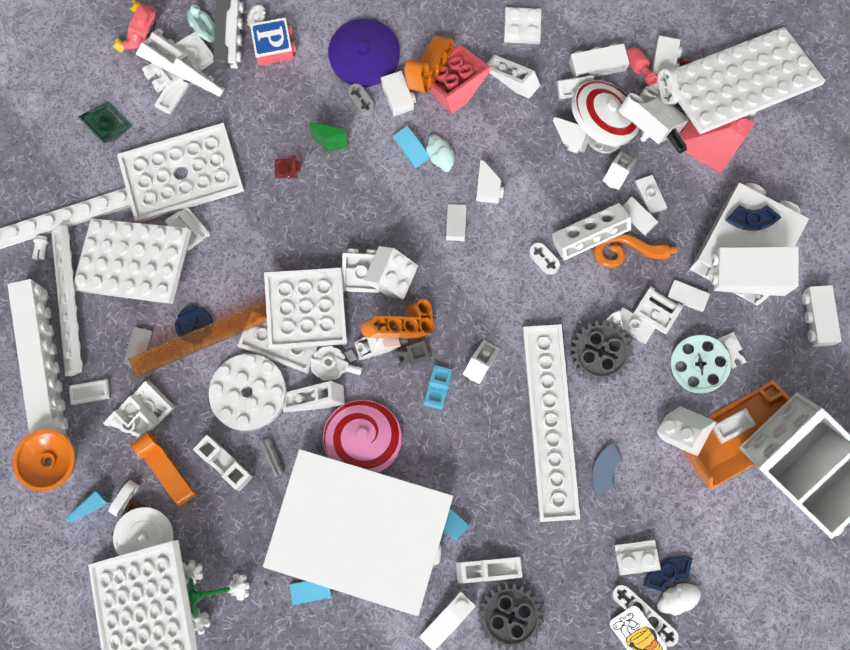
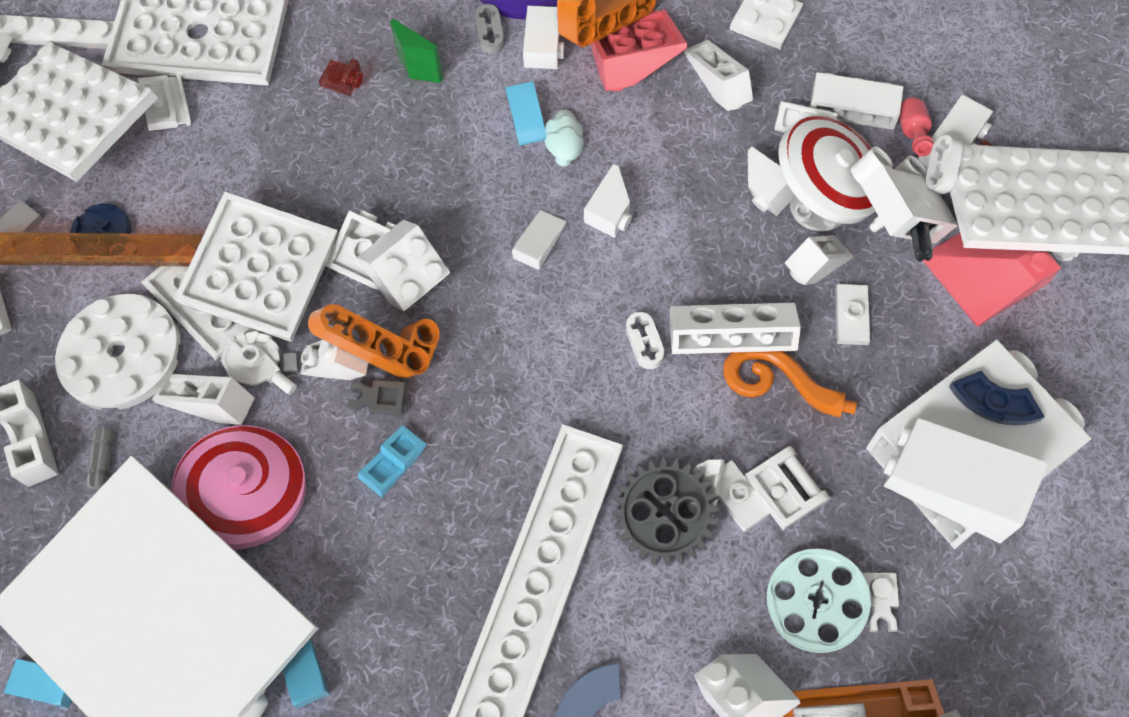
camera: 25 degrees right, 10 degrees down
(481, 361) = (473, 448): white slope -> none
(640, 216) = (820, 338): white slope -> none
(688, 295) = (846, 486): white tile -> none
(821, 316) = (1056, 609): white brick -> none

